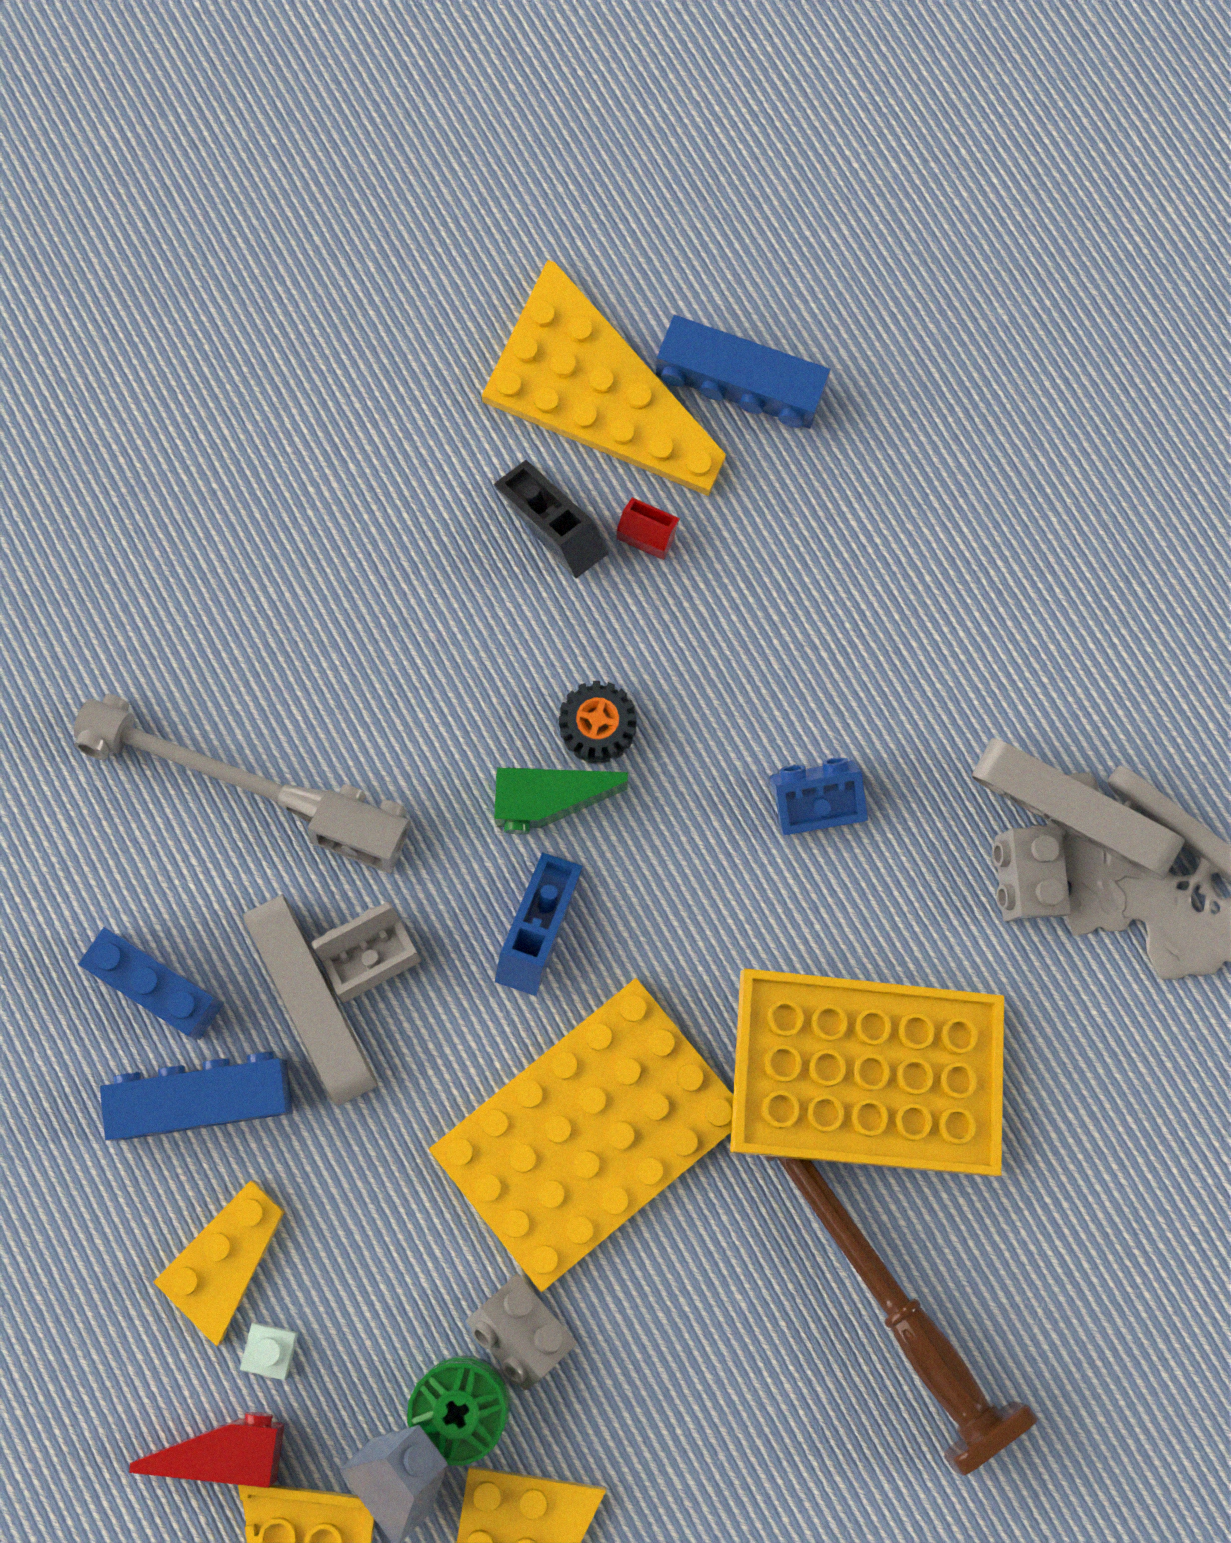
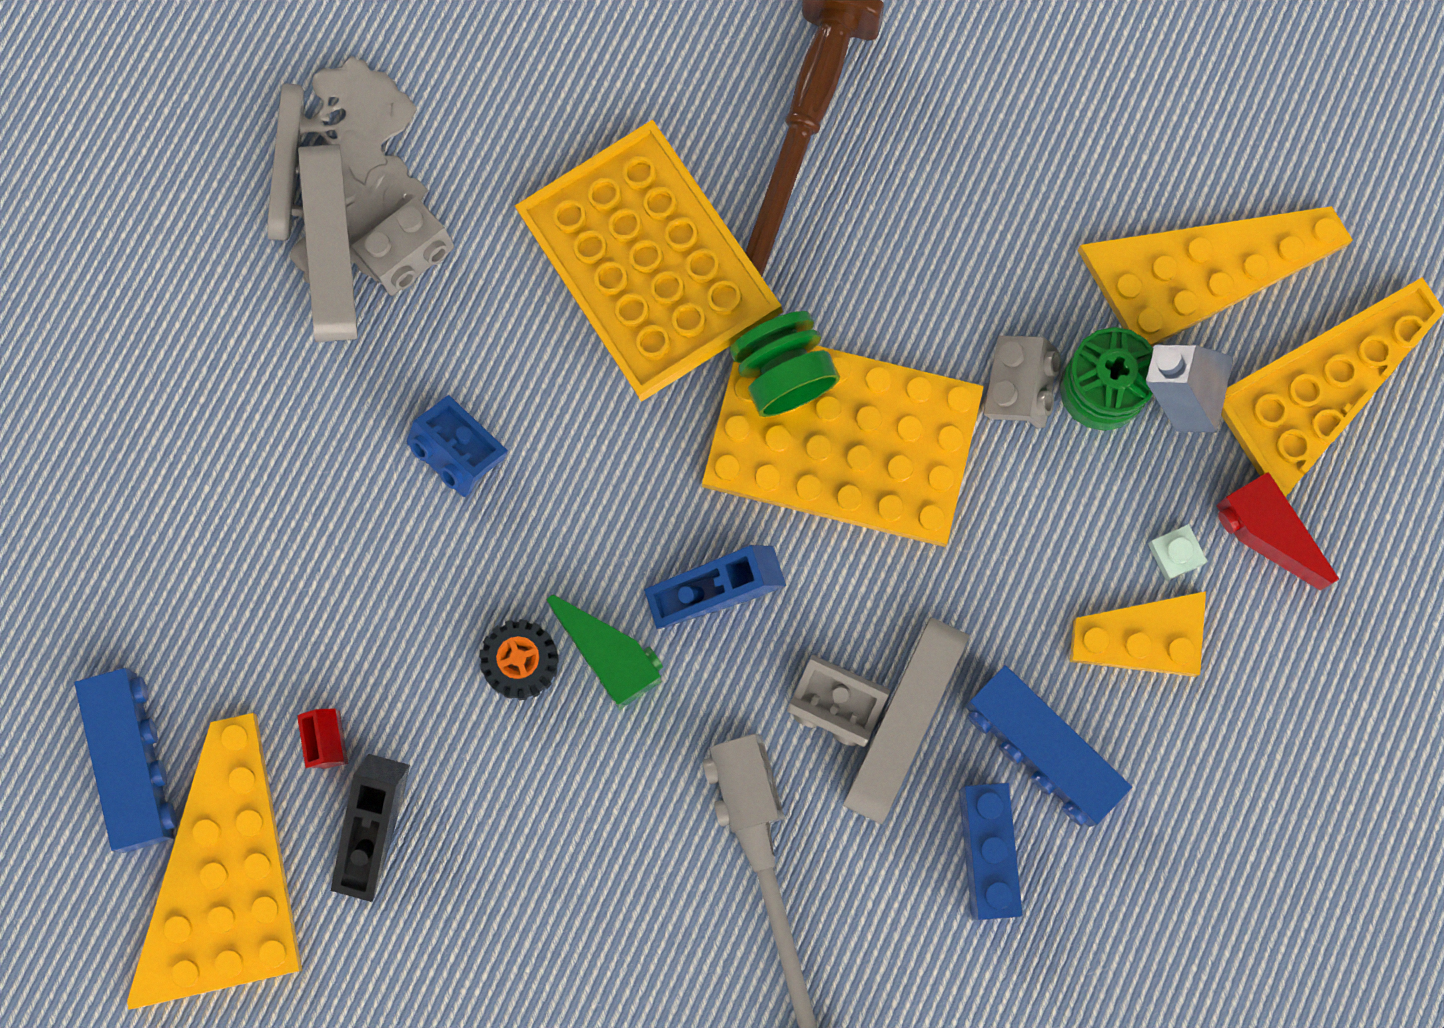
camera: 130 degrees left, 0 degrees up
(681, 1115) = (784, 362): none -> green wheel

